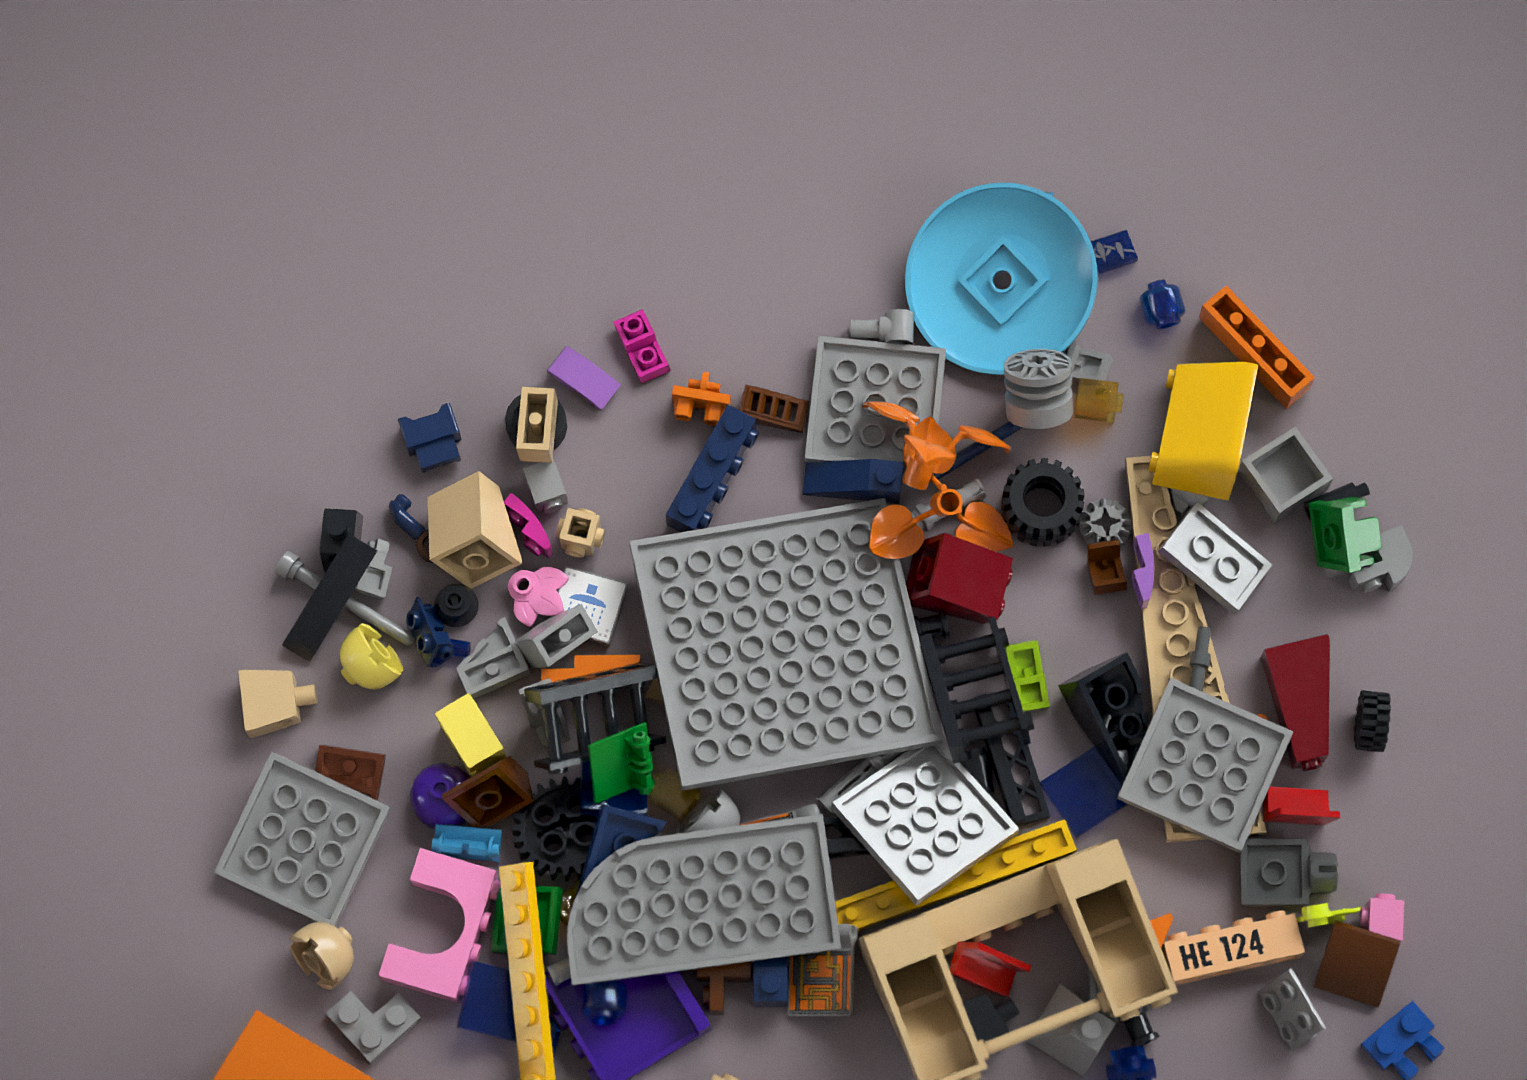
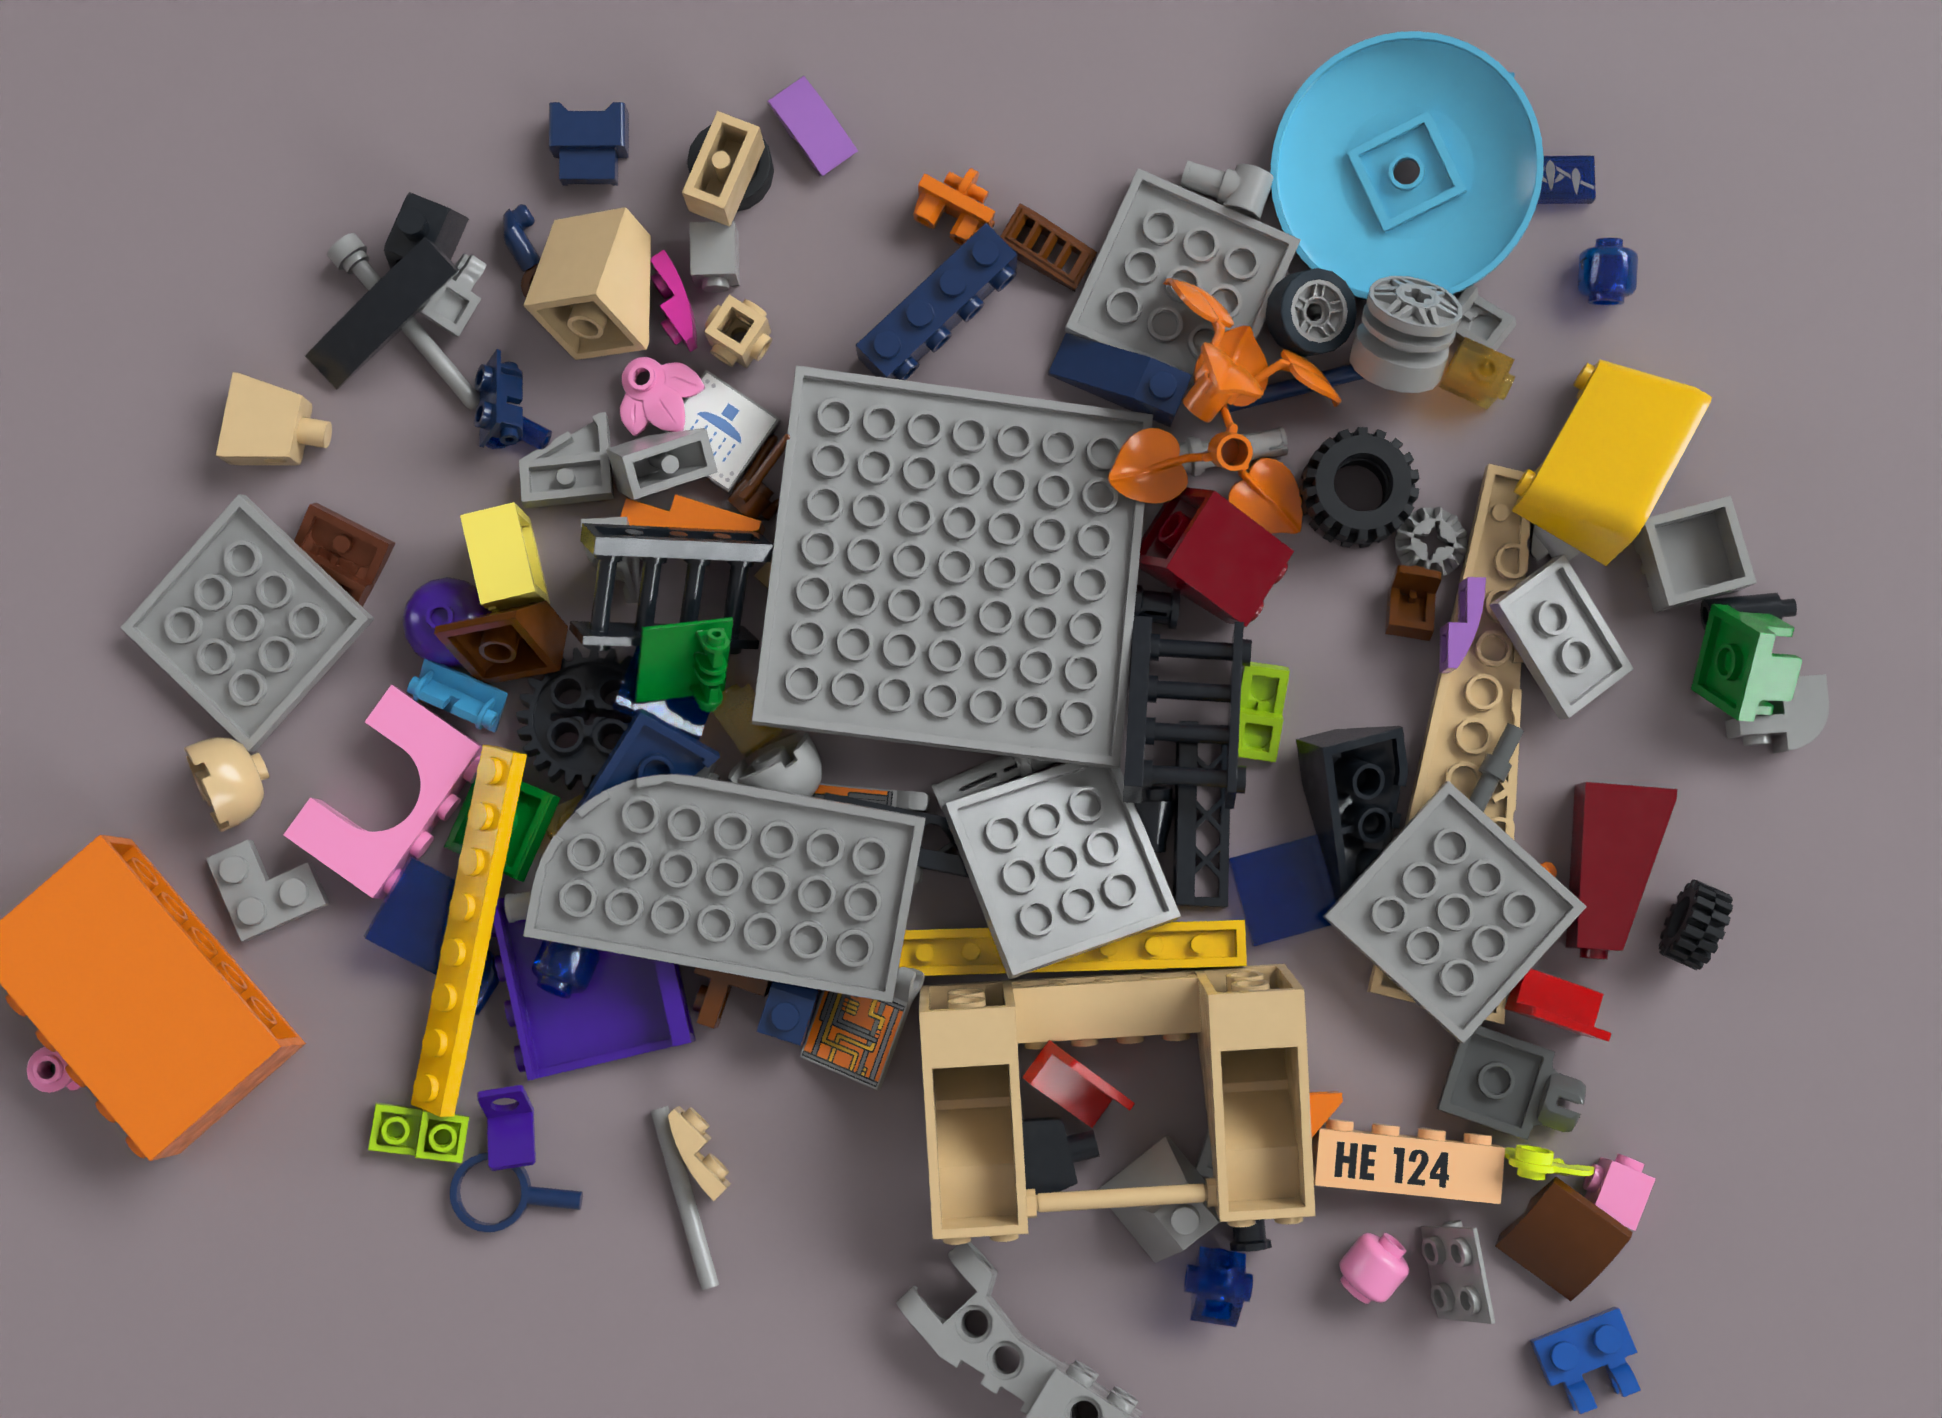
camera: 15 degrees right, 10 degrees up
(367, 660) = (408, 411): light yellow cylinder -> none
(460, 612) = (549, 387): black cone -> none
(625, 640) = (751, 494): none -> reddish brown plant
(641, 346) = (902, 108): dark pink slope -> none
(979, 384) = (1328, 301): none -> wheel
(1234, 1027) = (1374, 1267): none -> bright pink head
(1254, 343) = (1714, 364): orange brick -> none

